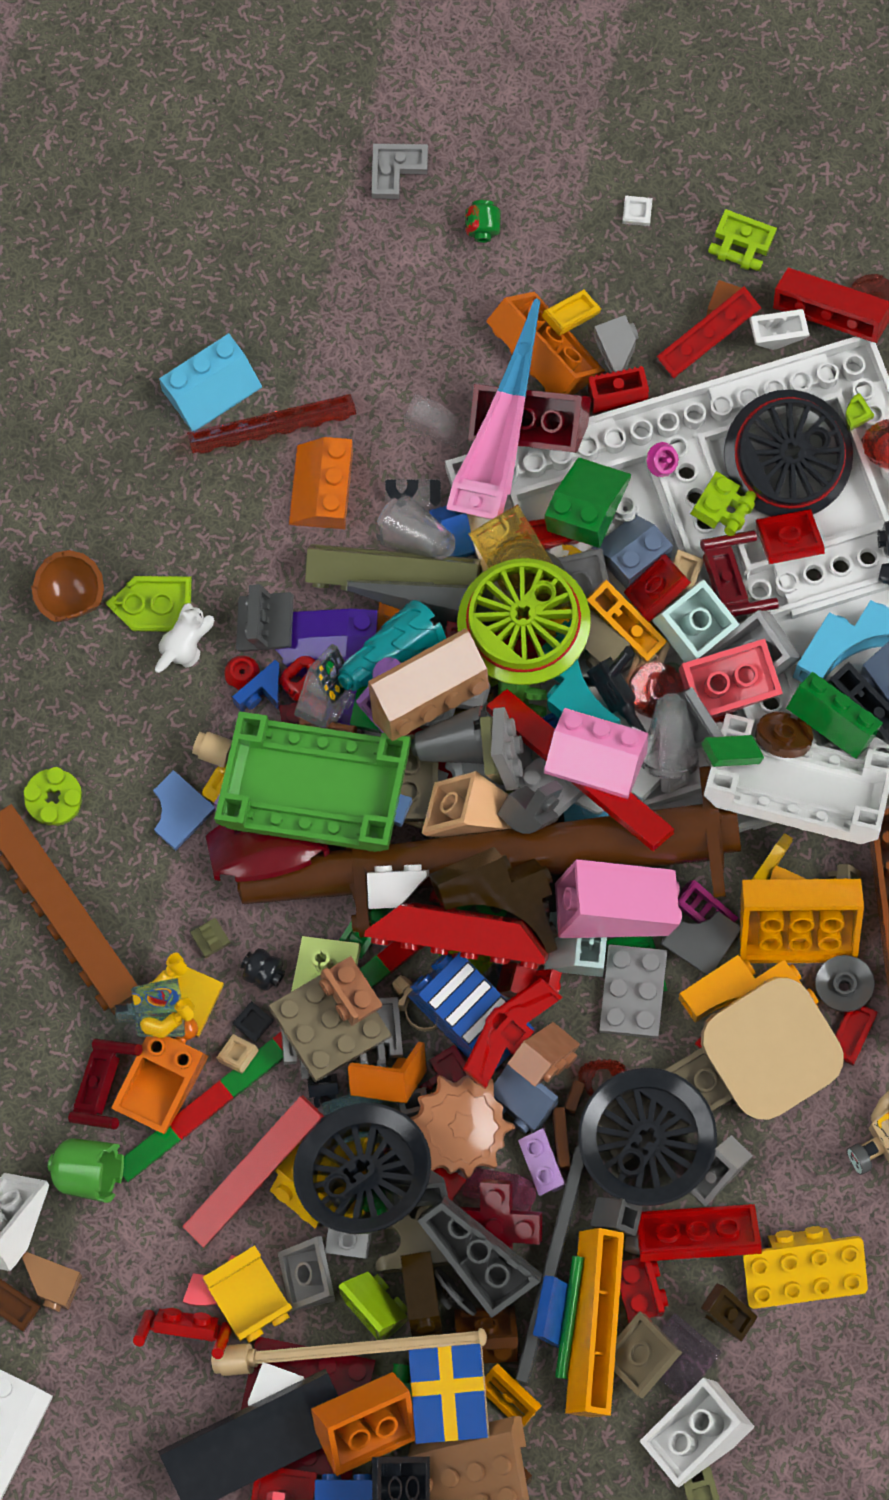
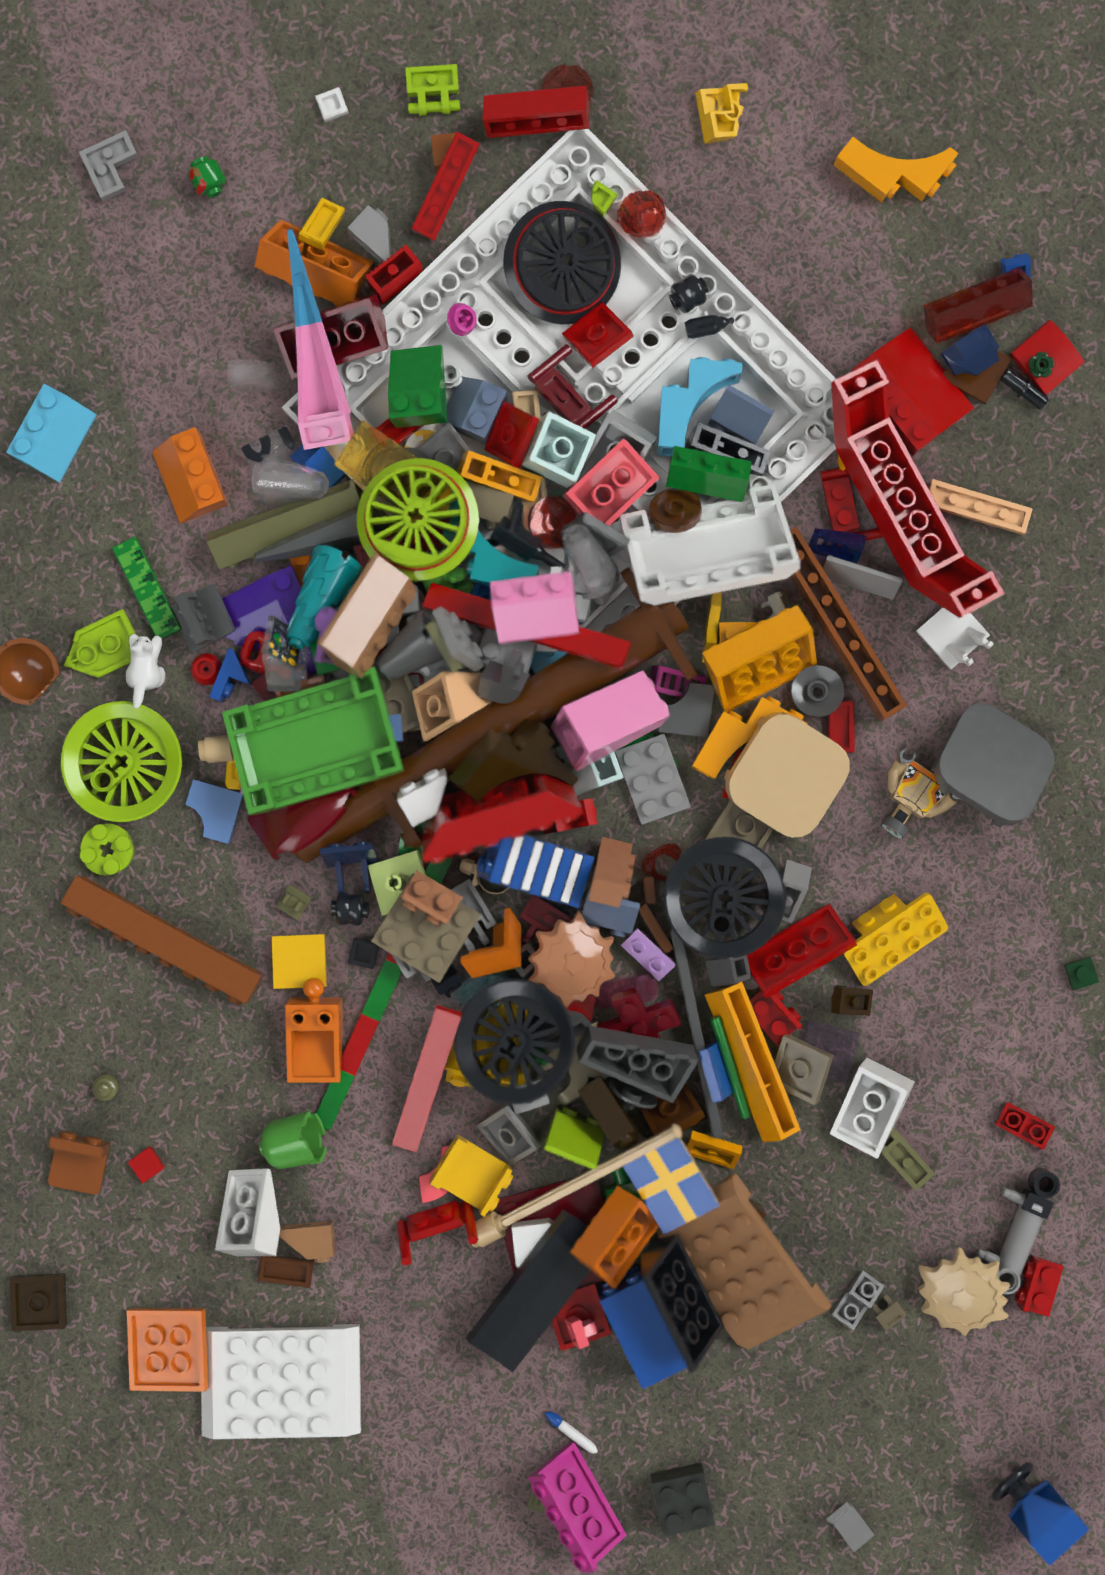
camera: 30 degrees left, 15 degrees up
(98, 1081) = (265, 1065): dark red plate -> none
(158, 1005) = (281, 984): torso -> none
(161, 707) = (153, 729): none -> lime piece
(224, 569) = (146, 588): none -> tile
(237, 1053) = (364, 986): tan tile -> none
(262, 426) = (120, 444): clear red plate -> none
(290, 914) = (361, 852): none -> dark blue plate
(508, 1029) = (575, 872): red plate -> none
(715, 500) = (522, 334): lime plate -> none
(732, 750) = (643, 549): green tile -> none
(779, 329) = (502, 154): white slope -> none

